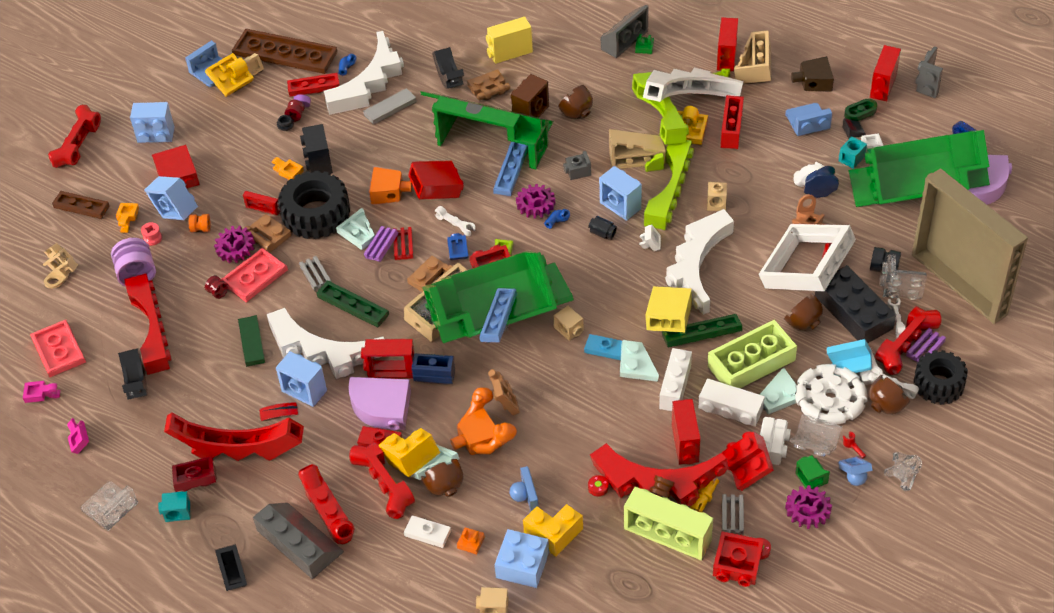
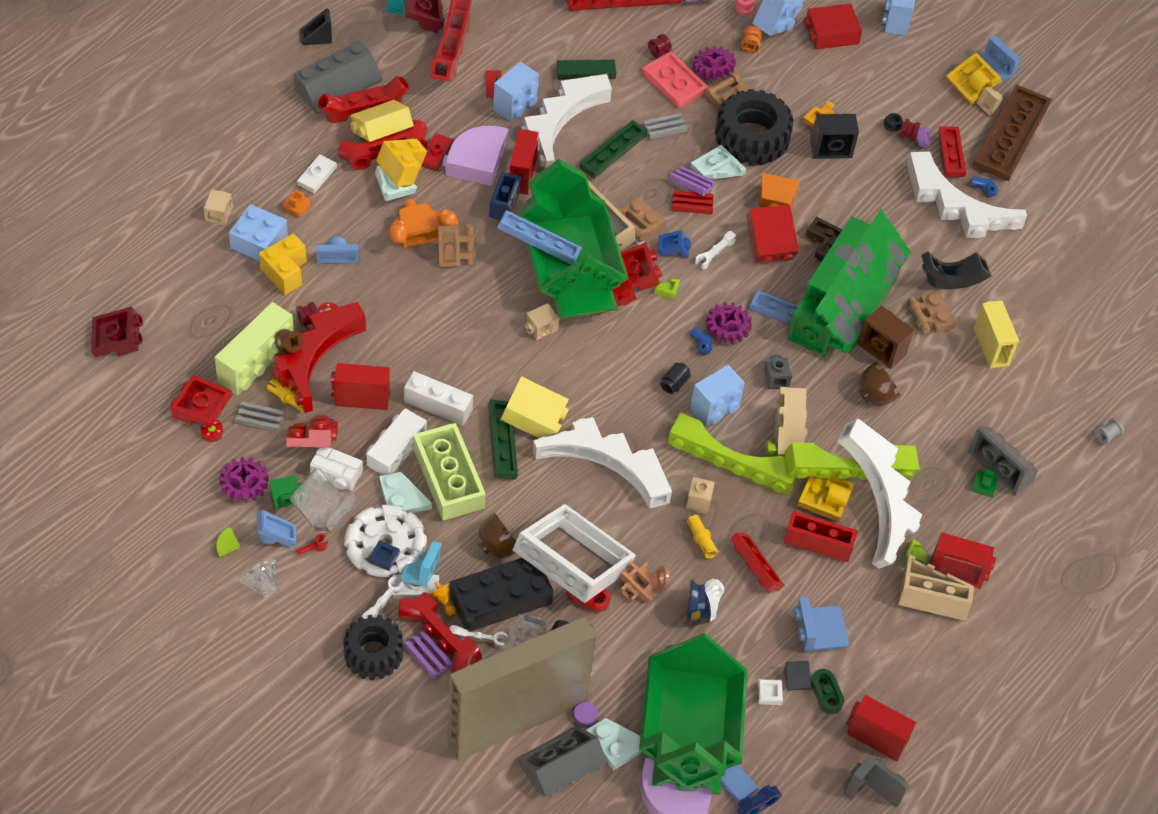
camera: 90 degrees right, 5 degrees up
(261, 203) = (774, 83): red tile -> none
(358, 480) = (381, 120): none -> light yellow brick
(389, 106) = (909, 217): light grey tile -> none
(429, 146) = (824, 233): none -> dark brown plate
(444, 478) = (365, 187): reddish brown cylinder -> none
(603, 347) = (505, 352): dark azure plate -> none
(607, 498) = (304, 311): none -> dark red wheel
(636, 362) = (475, 370): light aqua wing -> none
(650, 238) = (648, 420): white tile -> none
(752, 193) = (702, 536): none -> yellow pin
(765, 158) = (757, 562): none -> red plate
(815, 75) = (899, 655): dark brown torso -> none
(852, 152) = (752, 651): teal brick -> none
(855, 381) = (384, 555): none -> dark blue plate
(873, 340) = (442, 594): none -> light orange piece
(874, 508) = (227, 542): none -> lime tile
(887, 396) = (360, 587): reddish brown cylinder -> none

